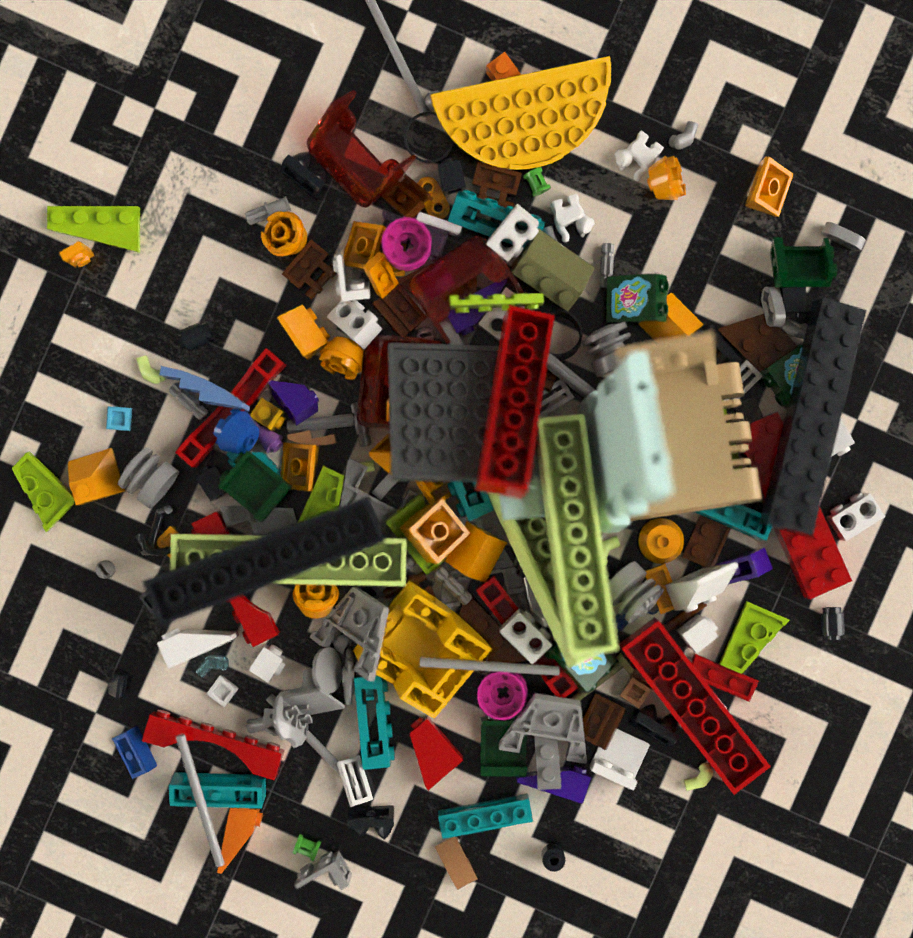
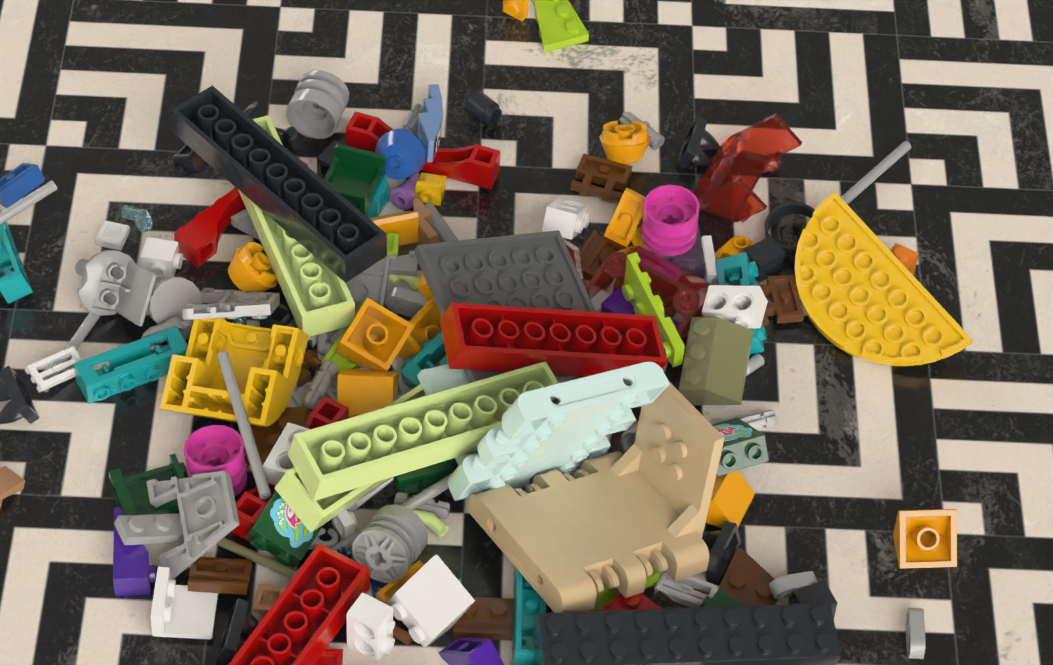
camera: 65 degrees right, 40 degrees down
(47, 493) = (266, 43): lime wing -> none
(94, 477) = (285, 68): light orange slope -> none
(117, 684) = (85, 149): black slope -> none
(119, 418) = (367, 79): medium azure tile -> none
(147, 372) = (422, 89): yellowish green arm -> none
(189, 643) = (153, 184): white slope -> none
(259, 757) = (49, 278): red arch -> none
(294, 400) = (457, 199): dark purple slope -> none
(304, 331) = (532, 182): light orange slope -> none
(343, 357) = (523, 216): light orange cone -> none
(355, 290) = (606, 192): white bracket -> none
(407, 197) = (715, 224): reddish brown plate -> none
(433, 751) = (117, 429): red slope -> none
(485, 816) = (61, 498): teal brick -> none
(537, 182) = (802, 332): bright green bush -> none
(550, 851) = (34, 576): black brick -> none
(571, 214) = (784, 371): white animal -> none
(640, 153) = (892, 413): white animal -> none
(661, 541) = (468, 564): light orange cone -> none
(666, 179) = (876, 437): light orange cone -> none
(686, 138) = (931, 450): light grey arm -> none
(802, 264) = (853, 593): dark green panel -> none

